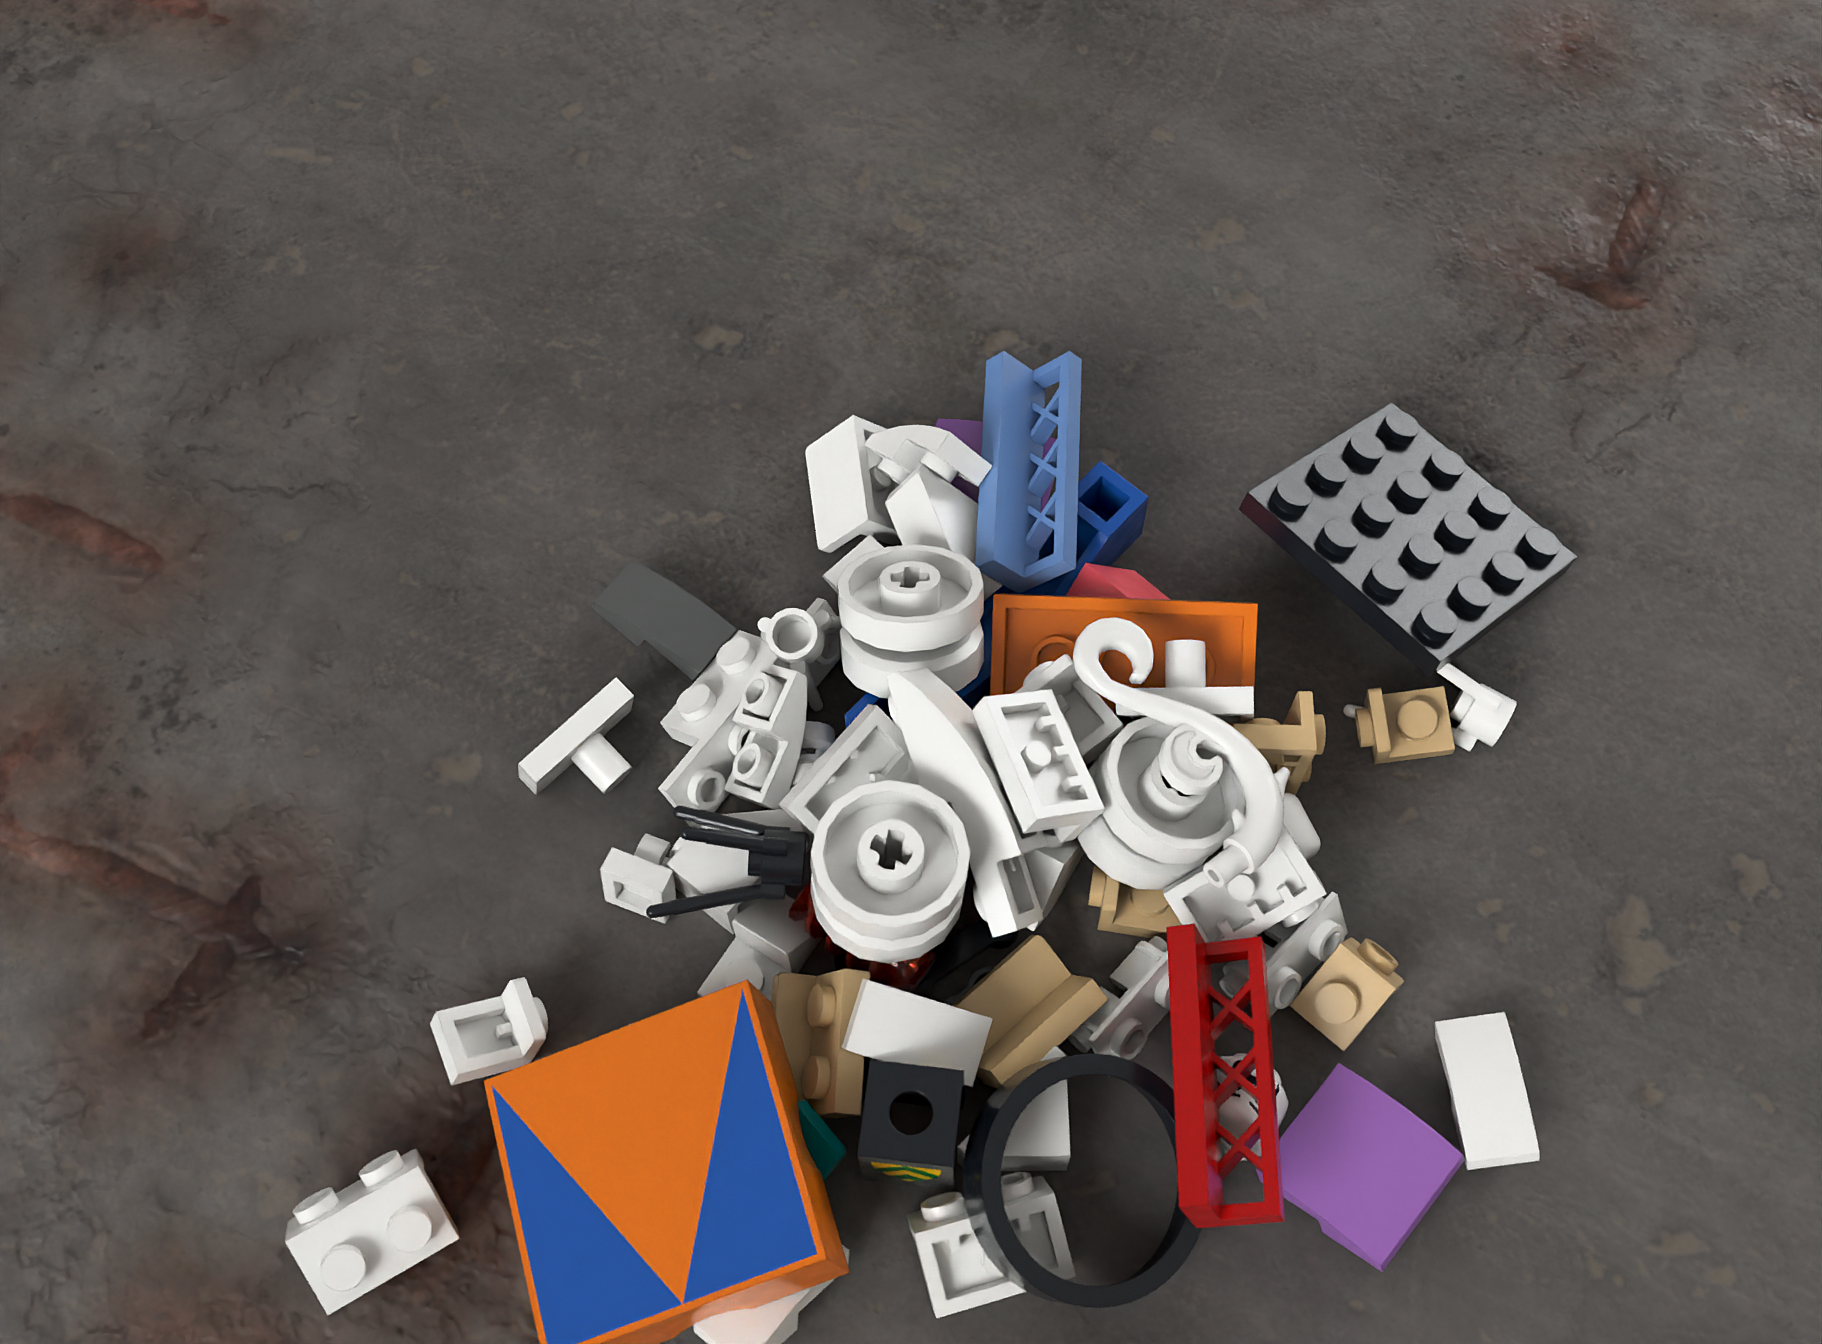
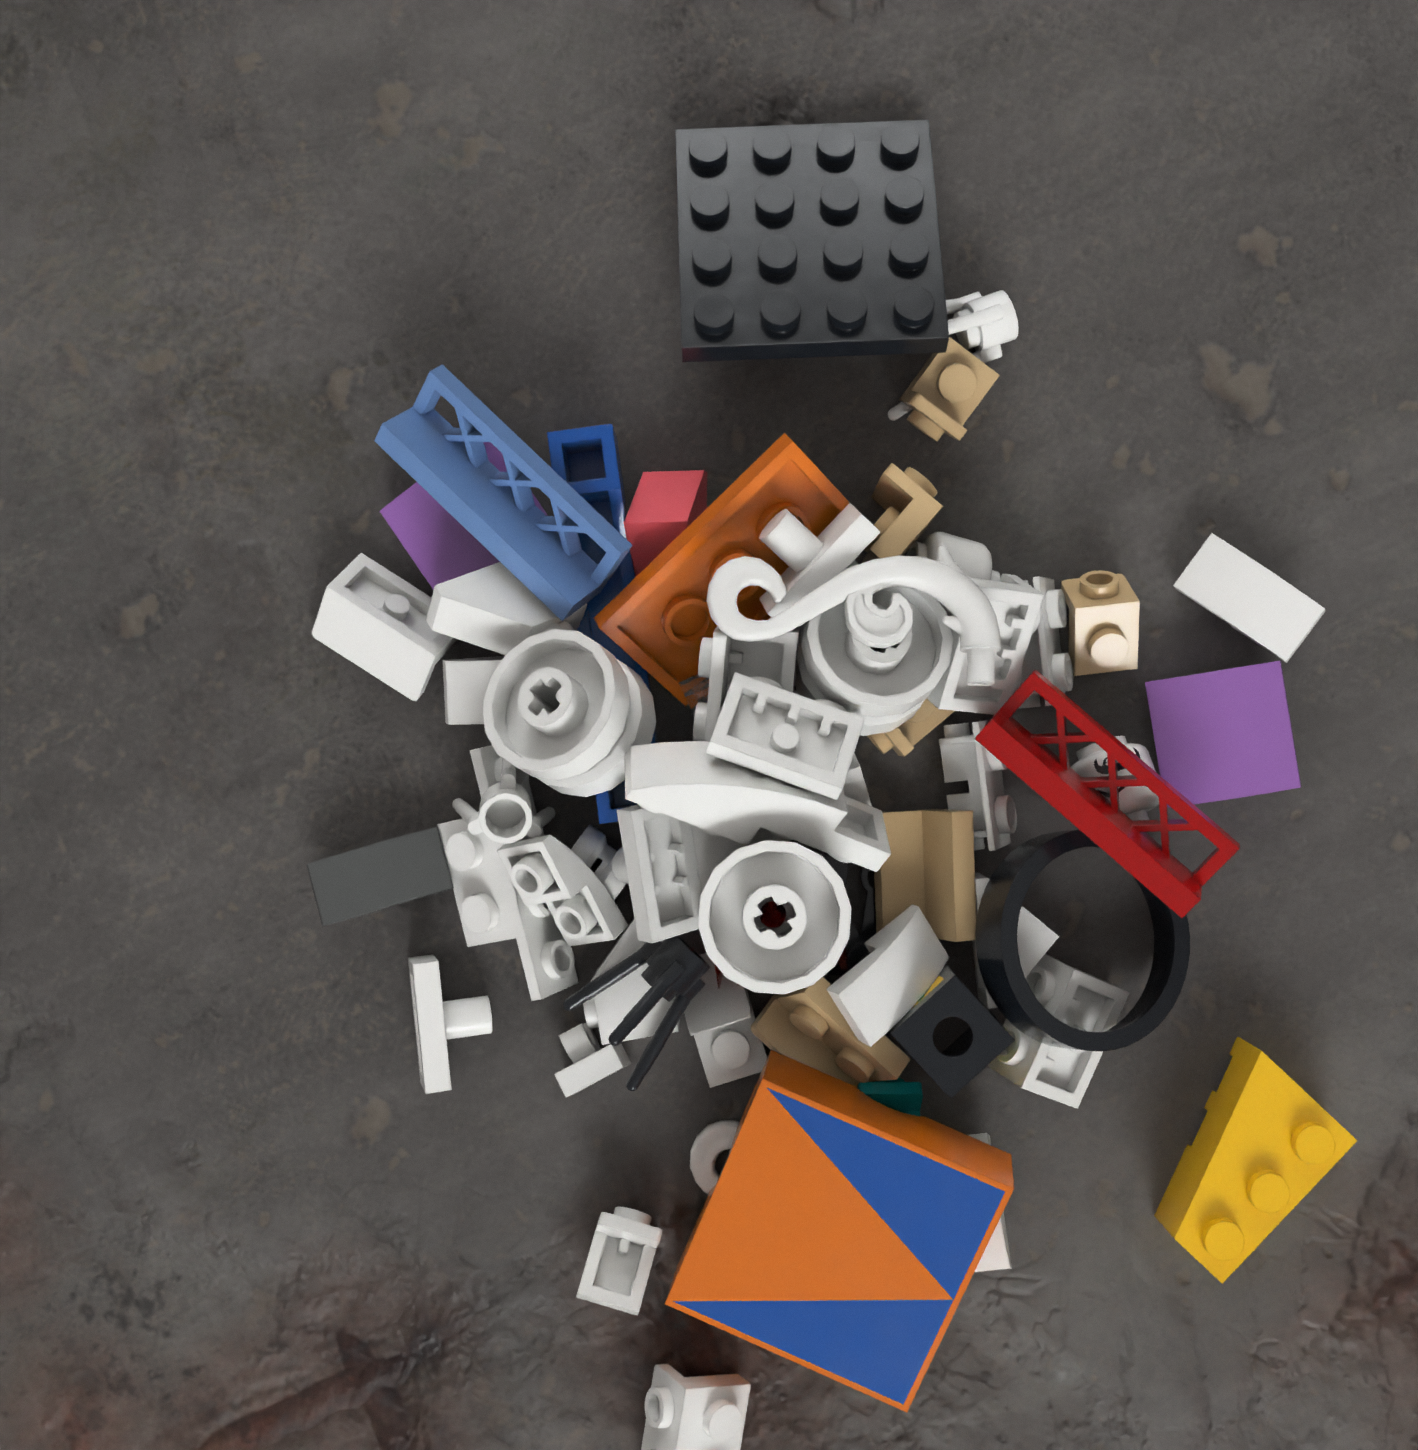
camera: 50 degrees left, 25 degrees up
(939, 450) = (409, 577): white slope -> none

